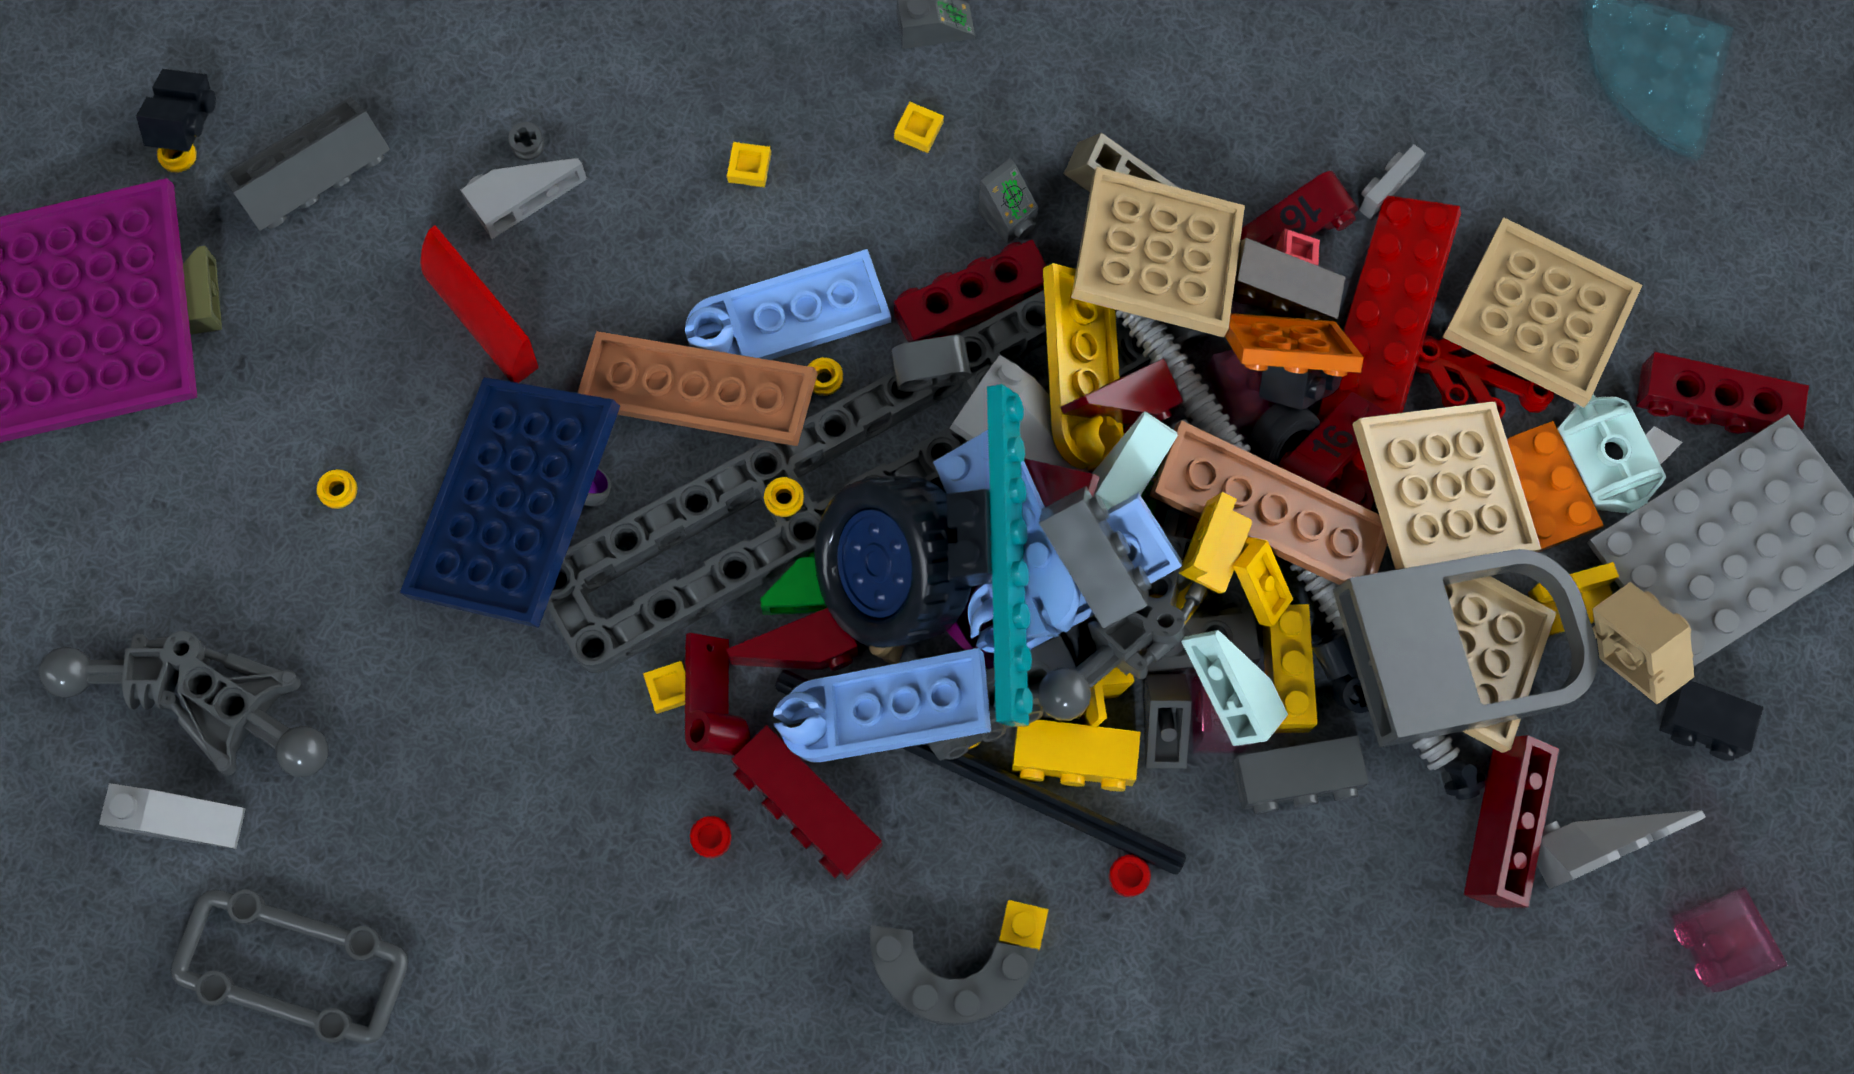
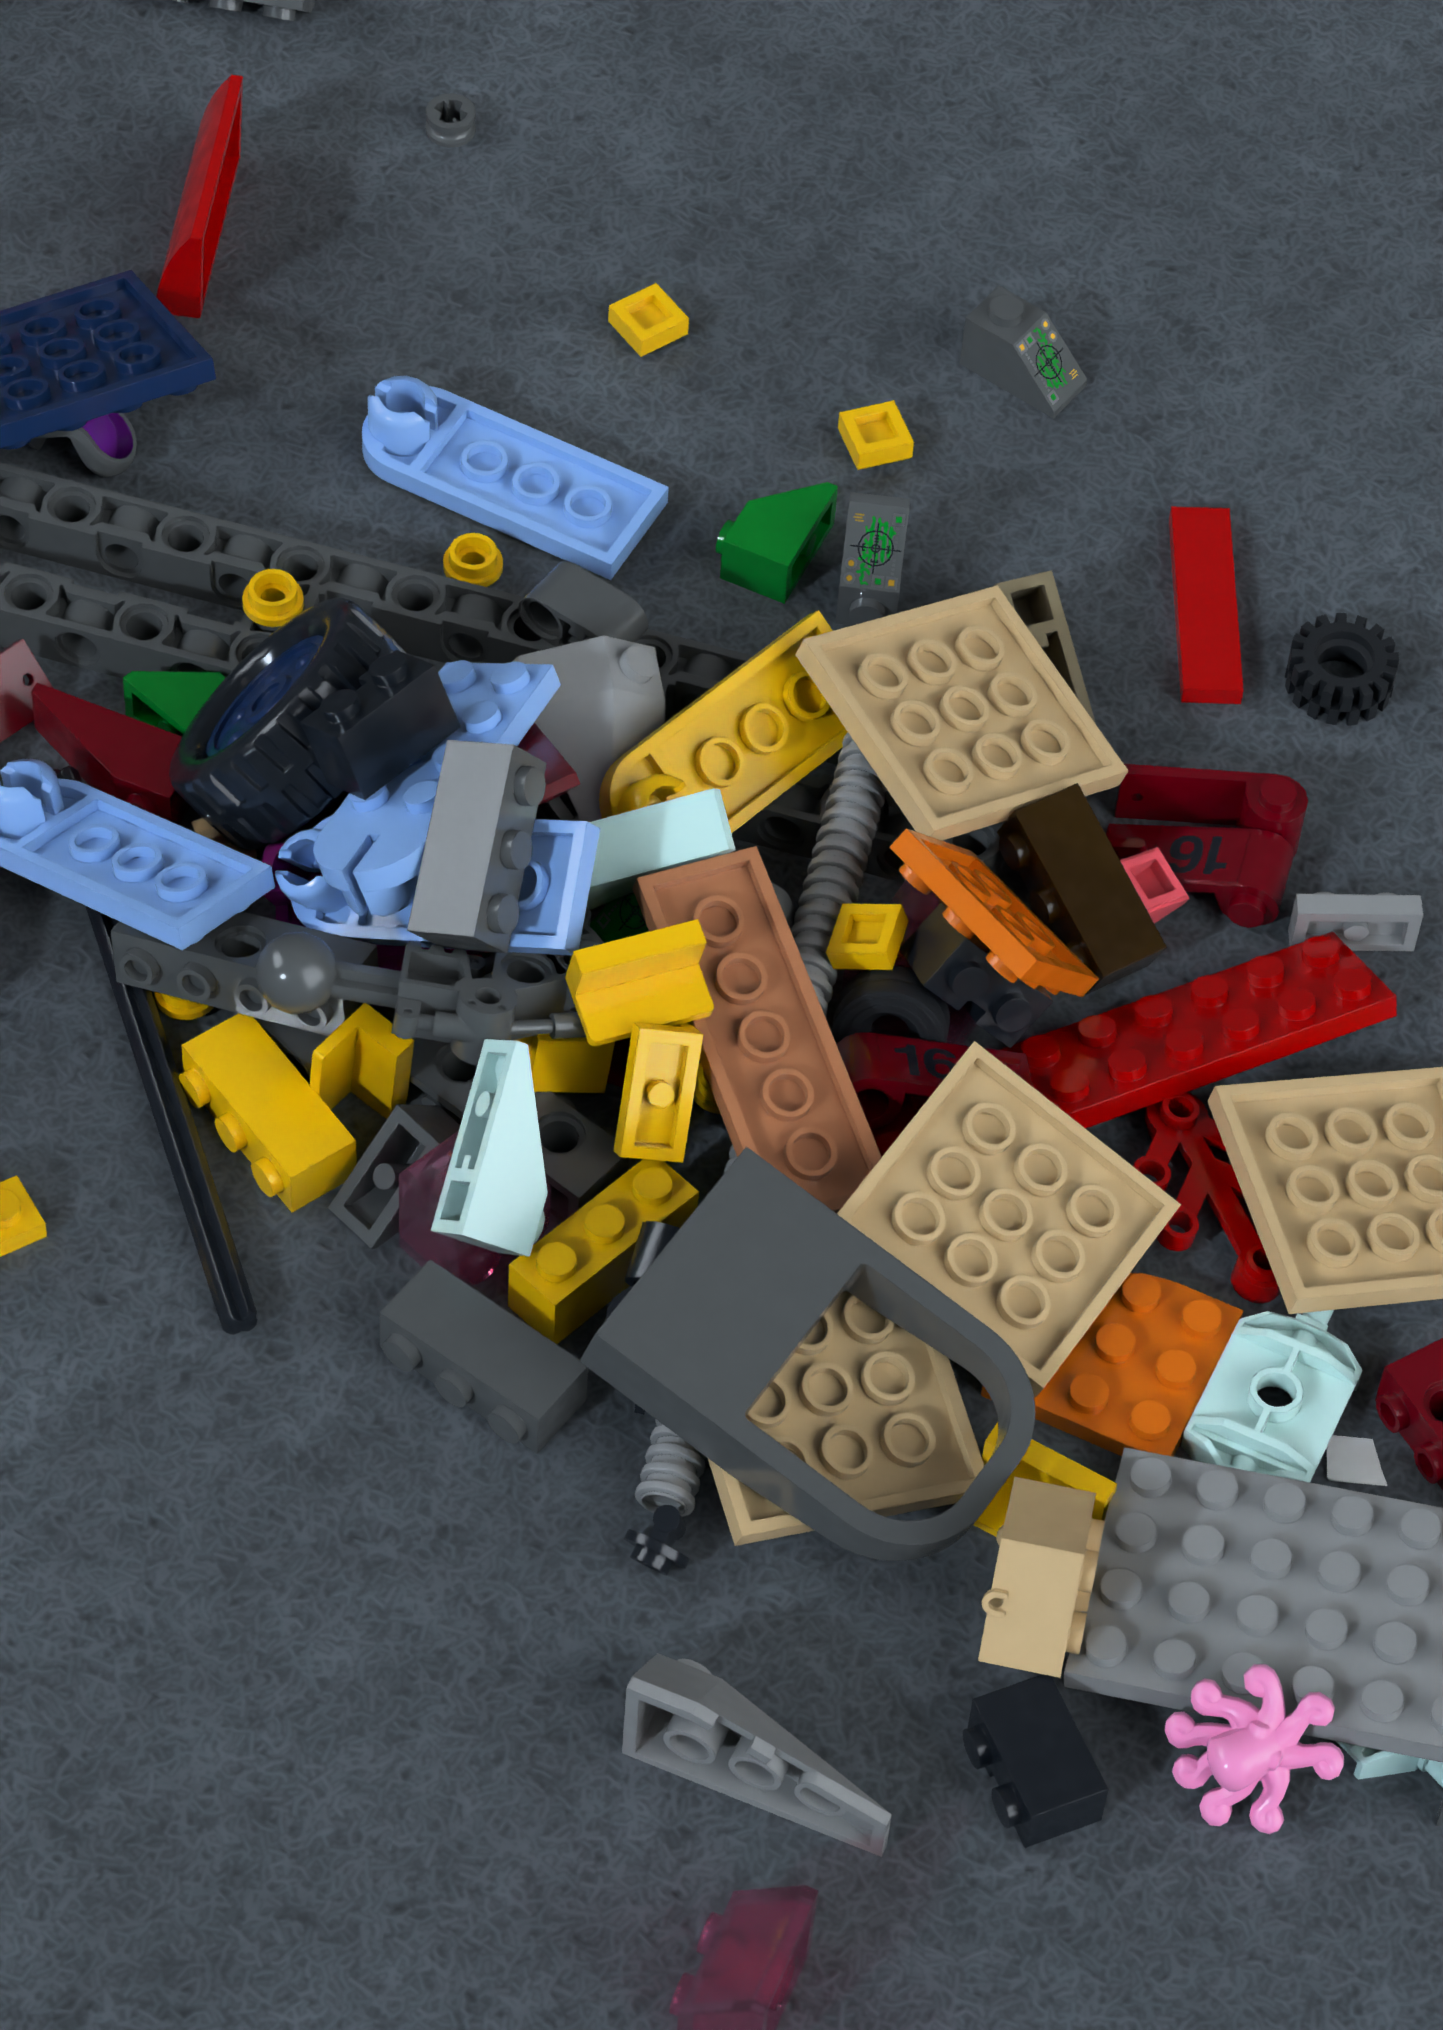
camera: 45 degrees right, 20 degrees down
(516, 192) = (378, 149): light grey slope -> none
(700, 387) = (324, 447): nougat plate -> none
(944, 230) = (776, 539): none -> green slope
(961, 313) = (710, 604): dark red brick -> none
(1009, 569) = (383, 761): teal plate -> none
(1126, 398) = (758, 807): dark red slope -> none
(1129, 876) = (173, 1283): red tile -> none
(1150, 76) = (1205, 605): none -> red tile
(1246, 407) = (867, 936): none -> yellow plate
(1251, 36) = (1344, 643): none -> black tyre
(1297, 167) = (1214, 797): none -> dark red door
(1511, 824) = (653, 1616): dark red brick -> none
(1789, 629) = (1251, 1747): none -> bright pink animal

